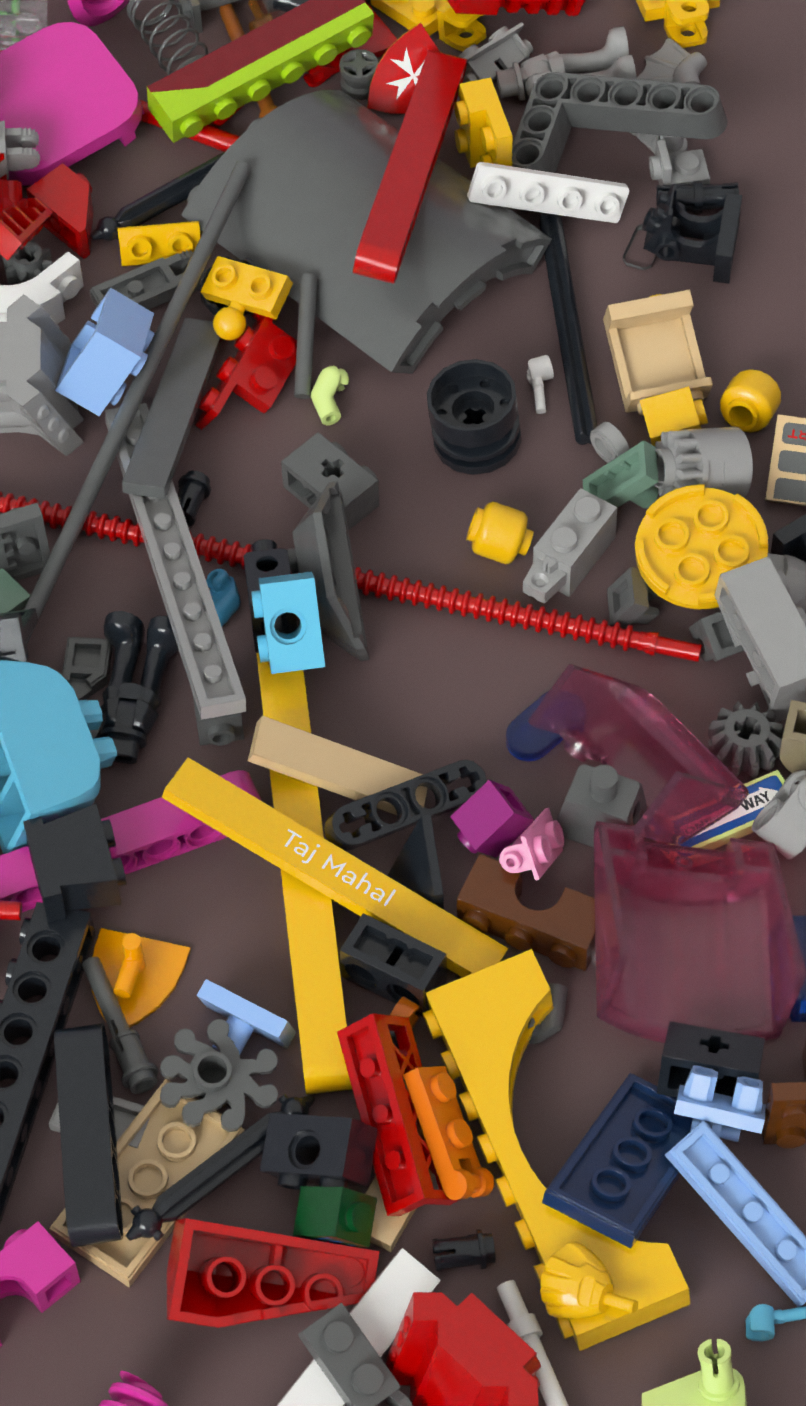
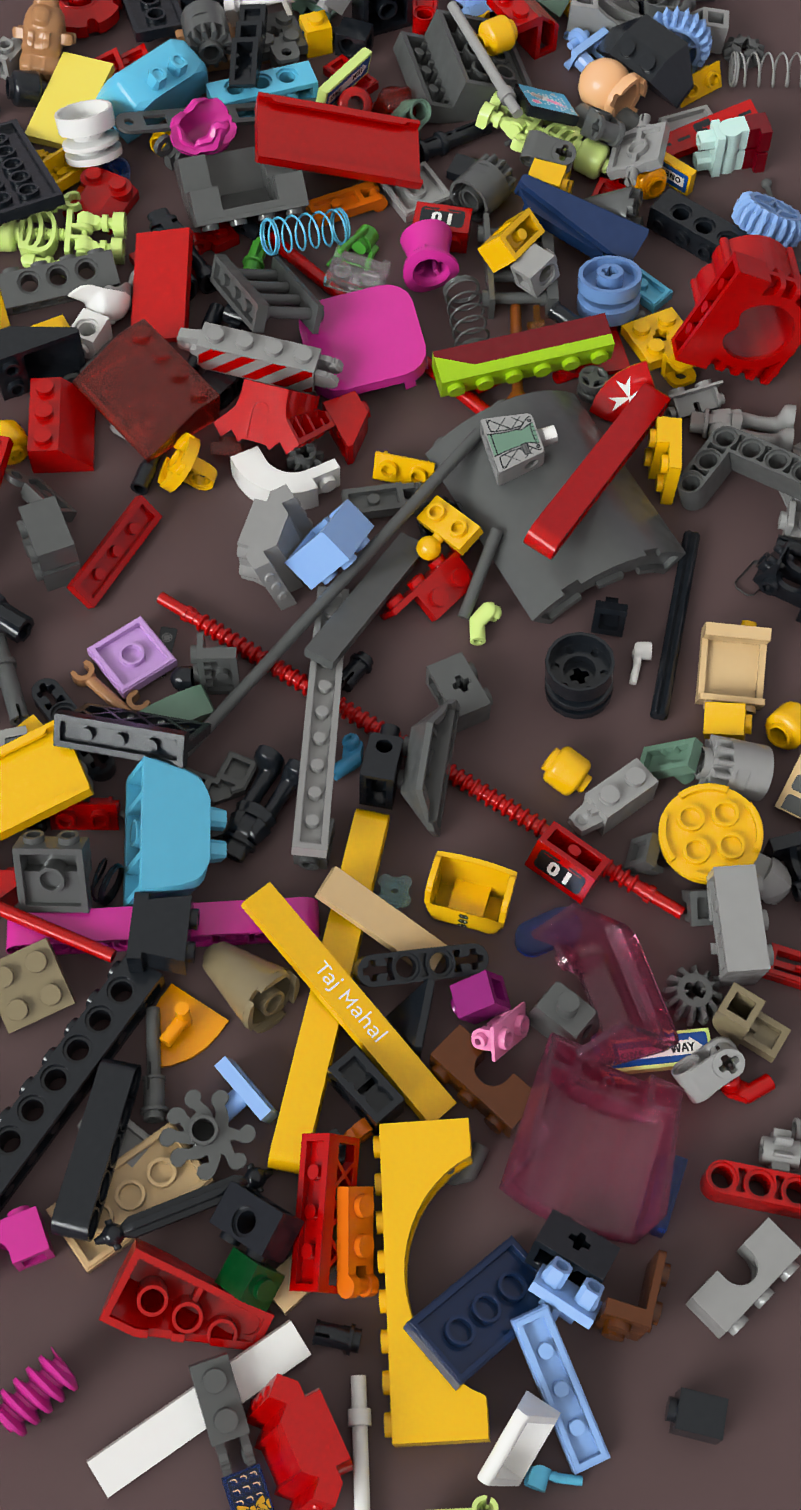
camera: 15 degrees right, 5 degrees up
(153, 202) = (410, 438): black wheel -> none
(204, 892) = (251, 985): none -> dark tan cone
(296, 164) = (515, 444): none -> light grey torso
(297, 649) = (377, 819): medium azure brick -> none
(345, 724) = (402, 884): none -> clear light blue plate
(436, 701) = (469, 892): none -> yellow piece
(485, 339) = (609, 617): none -> black tile
(539, 633) = (567, 862): none -> red brick
(547, 192) = (694, 517): white bracket -> none
(579, 1285) = (407, 1406): yellow piece -> none
(608, 441) = (673, 725): light grey tile -> none
(726, 1284) = (519, 1442): none -> white tile

